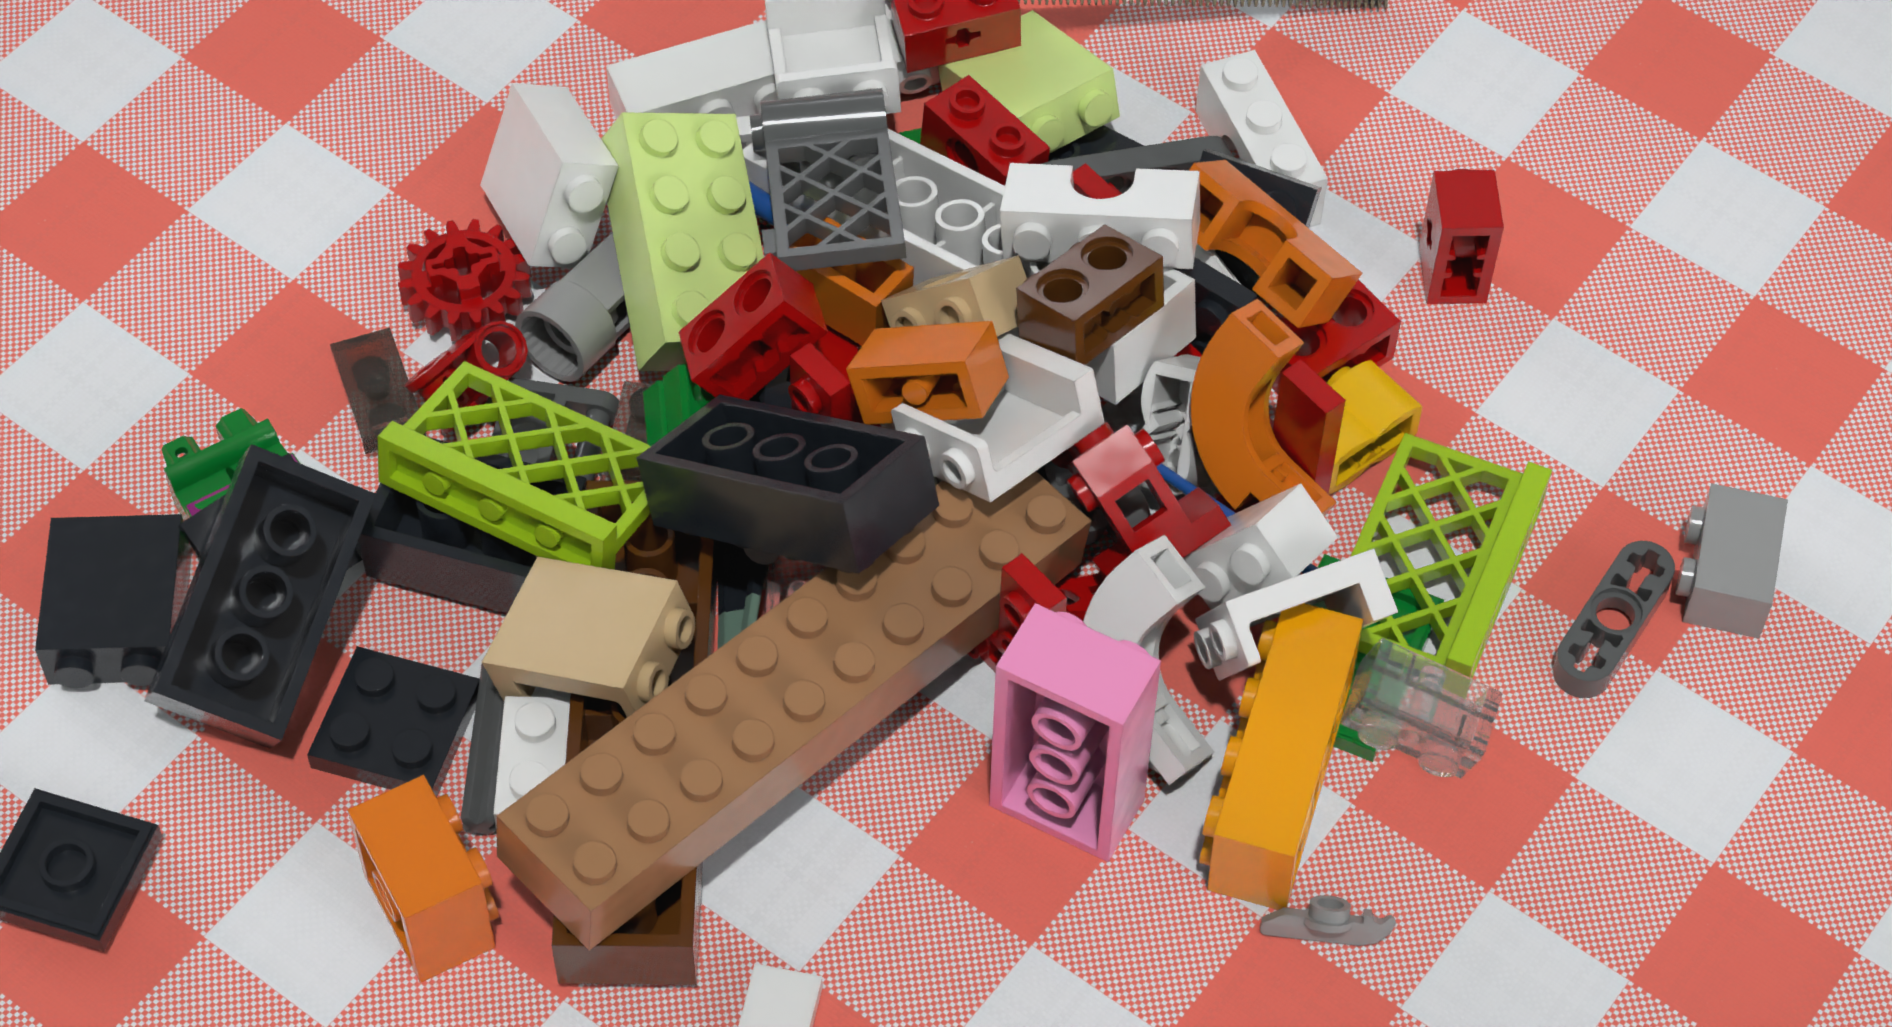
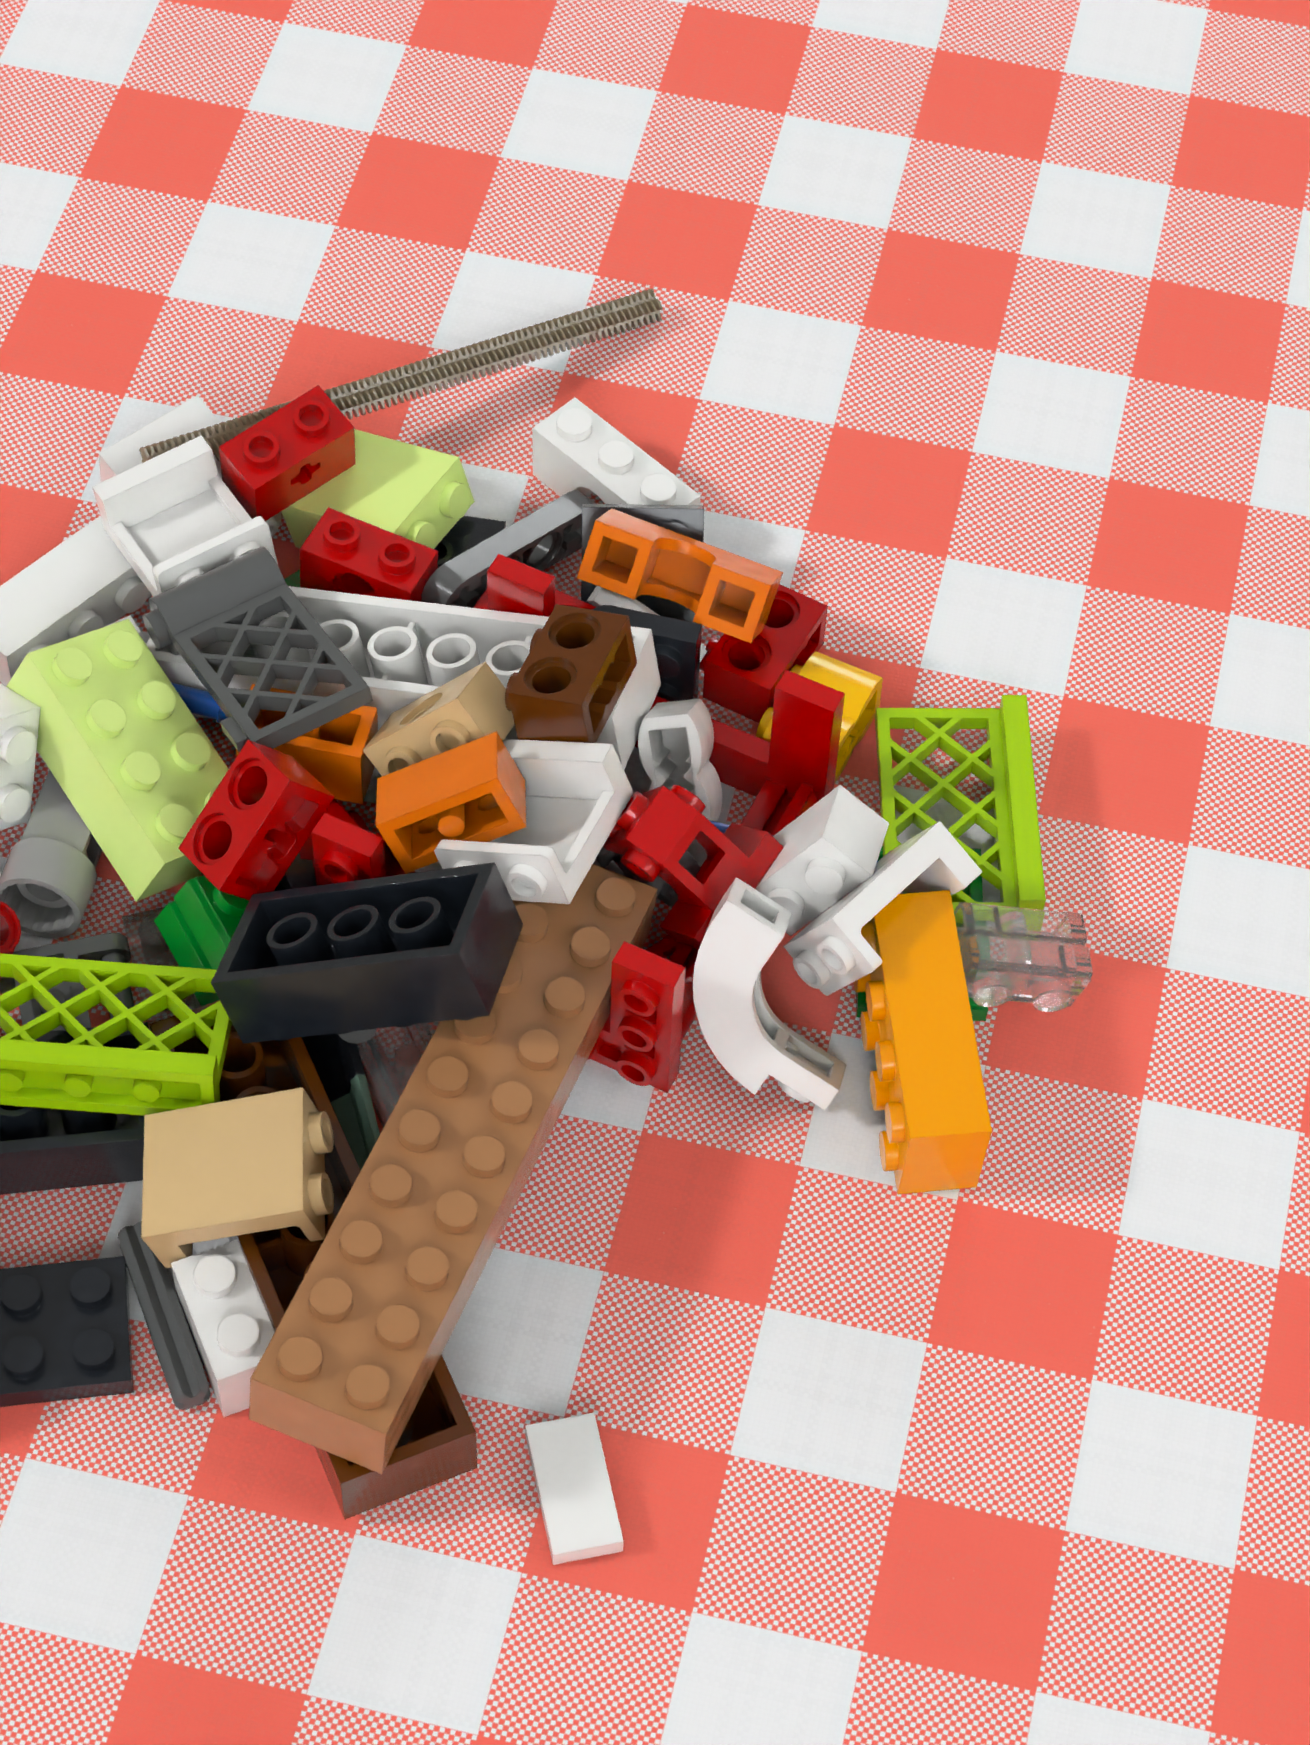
camera: 25 degrees left, 0 degrees up
(425, 876) = (176, 1468): orange brick -> none
(1047, 216) = (497, 618): white arch -> none
(1072, 730) = (739, 1091): bright pink brick -> none
(1233, 409) = (732, 739): orange arch -> none
(1328, 921) = (1021, 1180): light grey piece -> none
(1460, 236) = (842, 509): red brick -> none
(1613, 644) = (1118, 830): dark grey beam -> none
(1733, 560) = (1213, 722): light grey brick -> none

